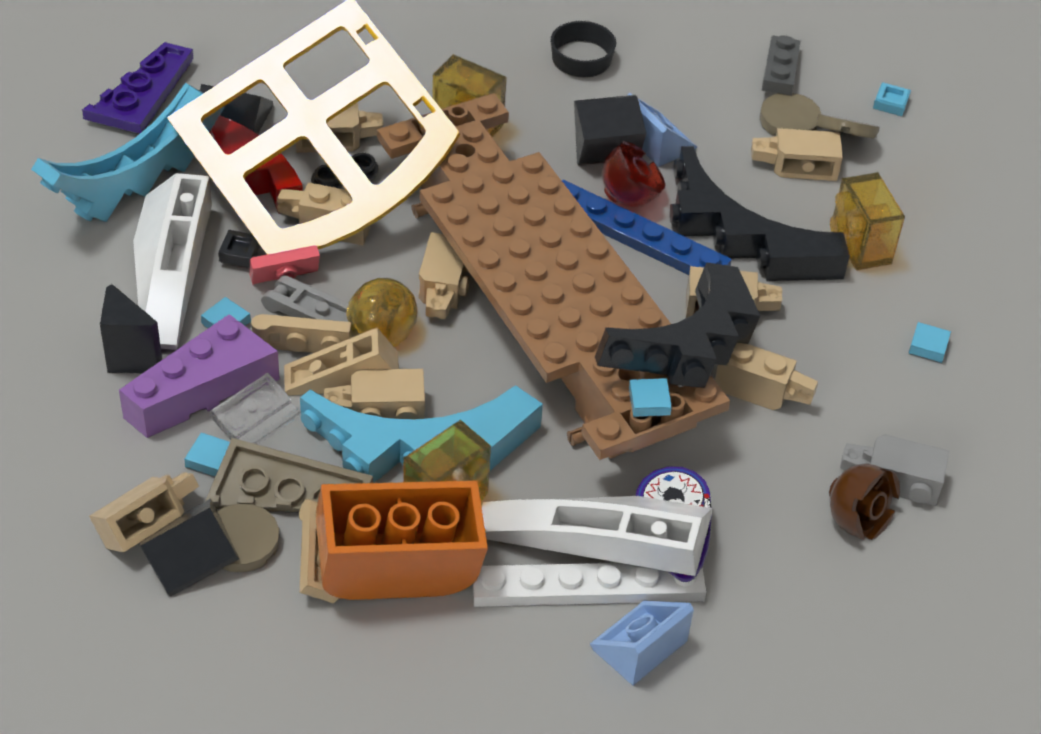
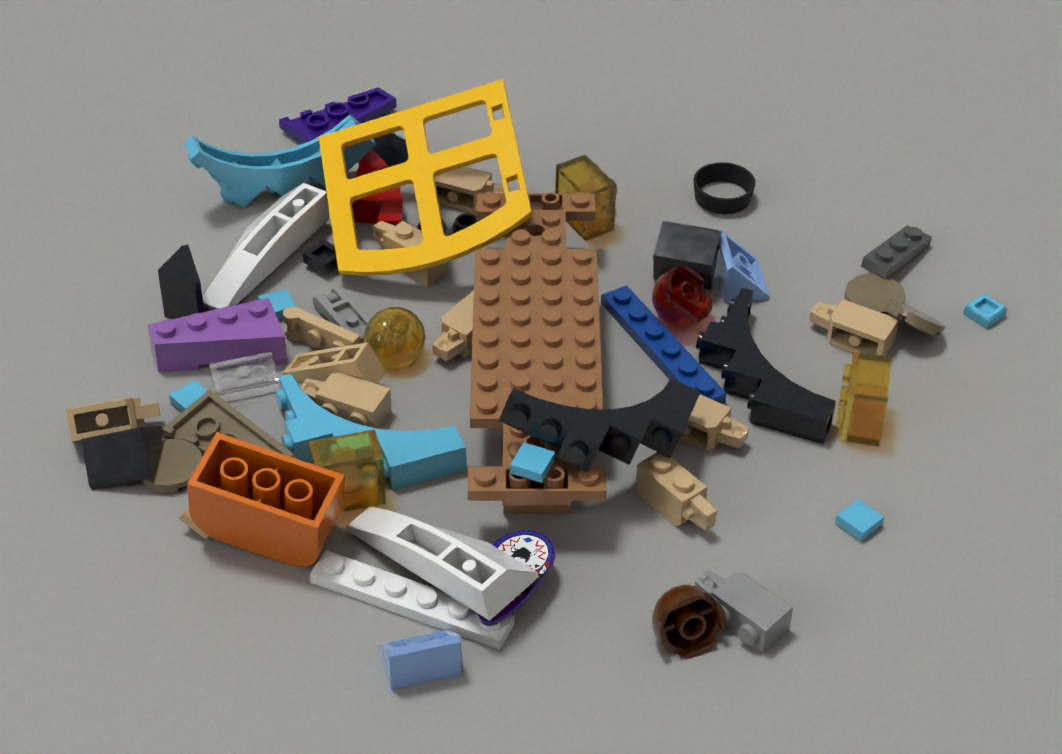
camera: 30 degrees right, 5 degrees down
(287, 263) = (350, 278): coral plate -> none

